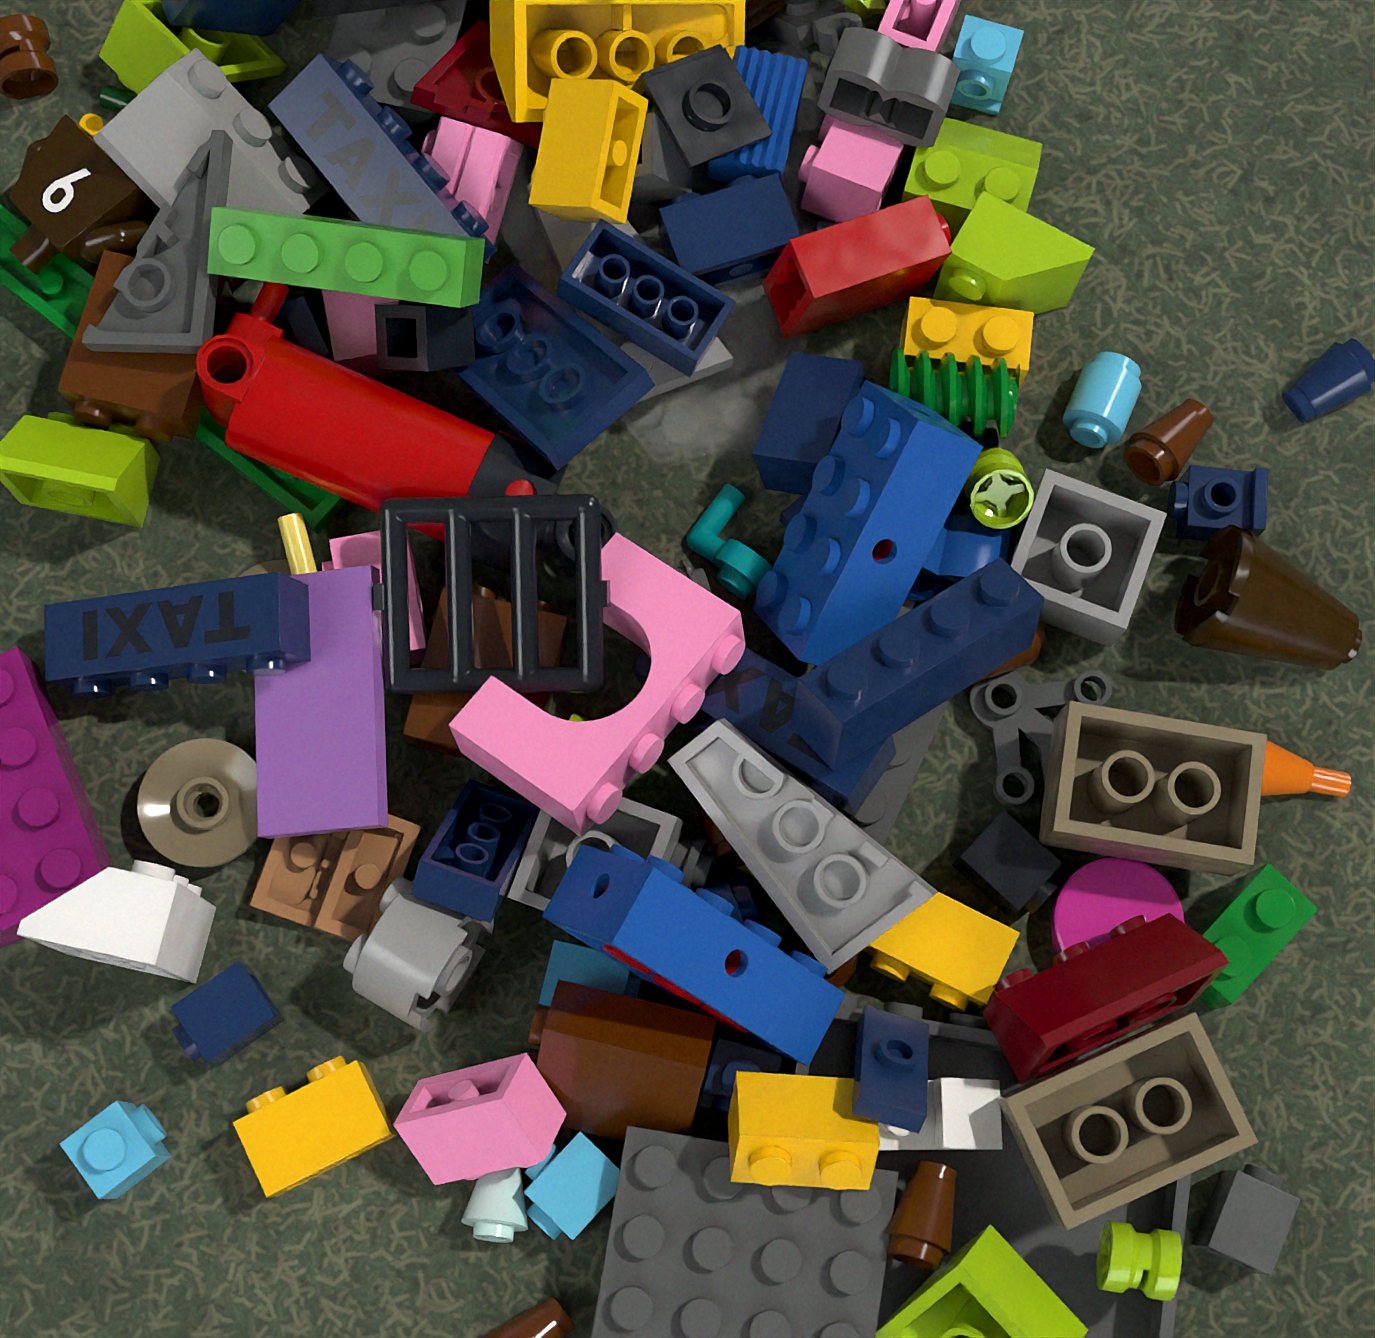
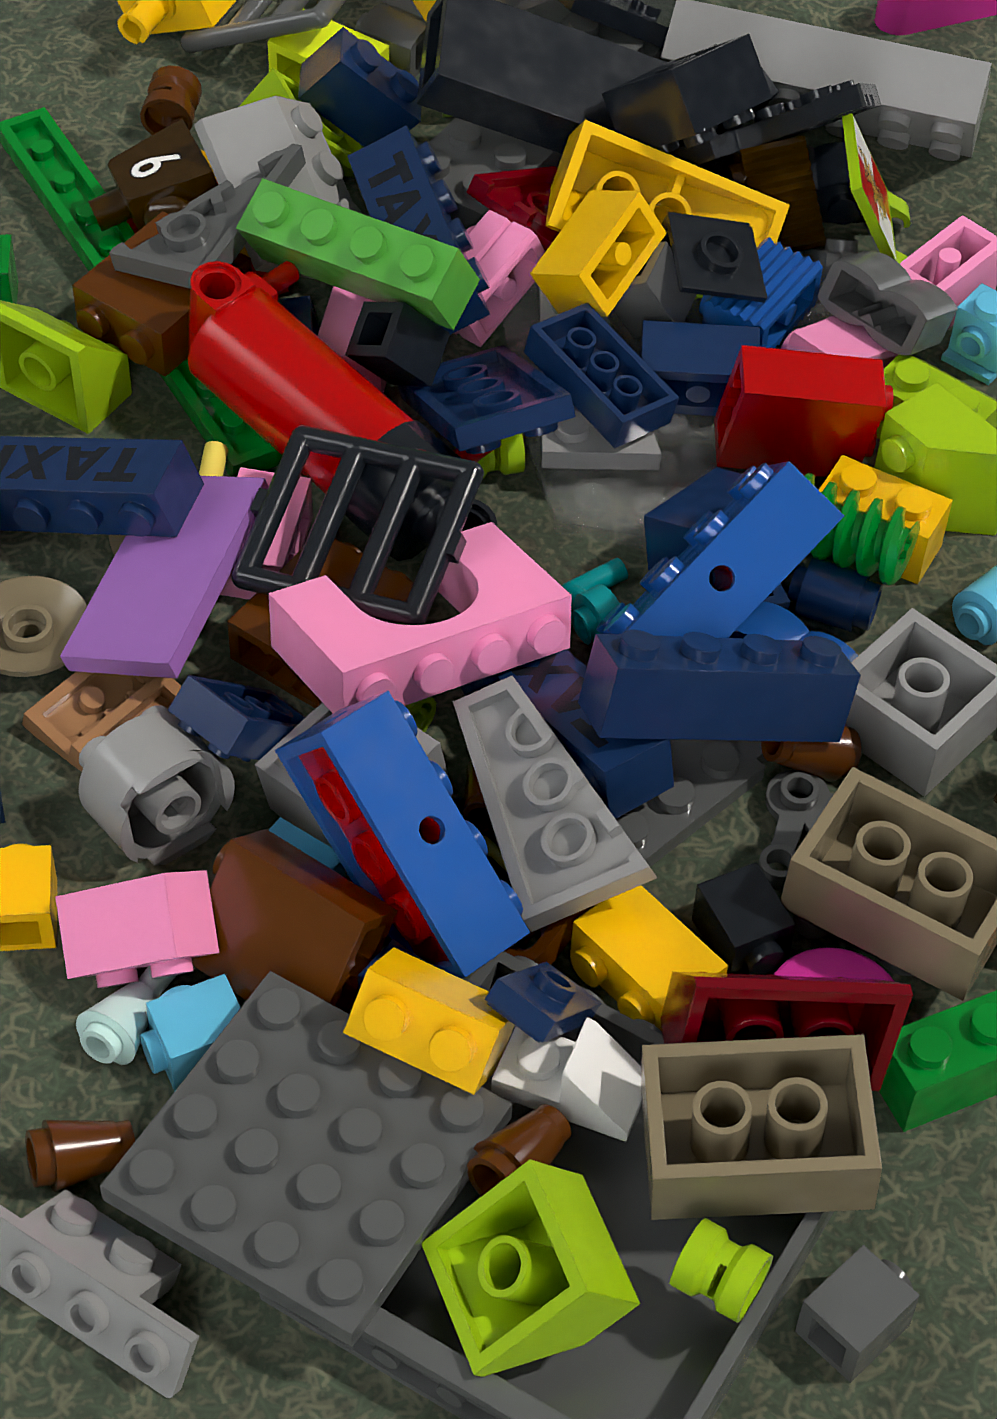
camera: 25 degrees right, 25 degrees down
(1002, 501) = (851, 612): lime wheel -> none

